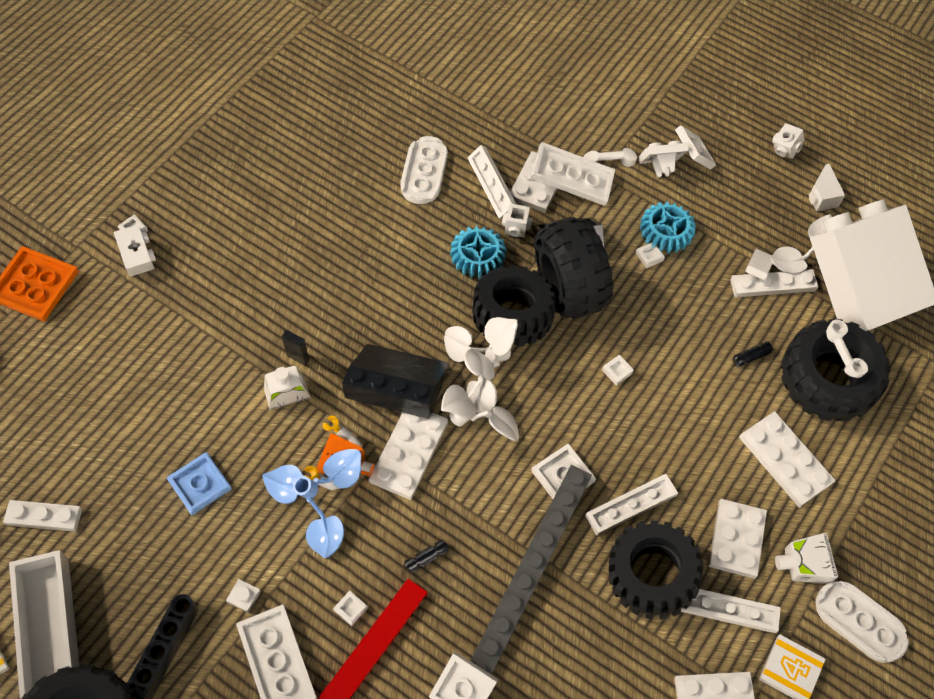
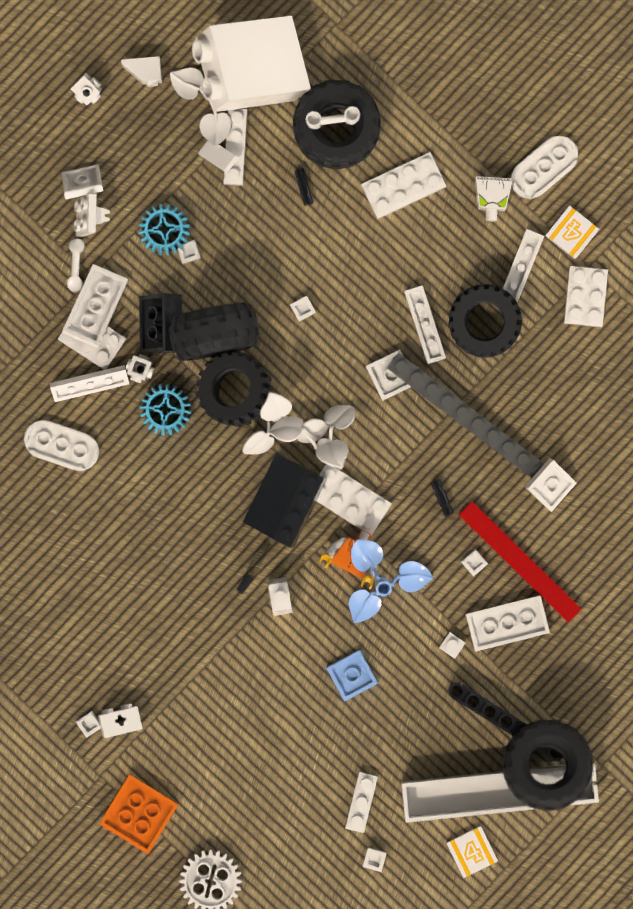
camera: 80 degrees left, 25 degrees up
(737, 538) = (464, 245): white plate -> none

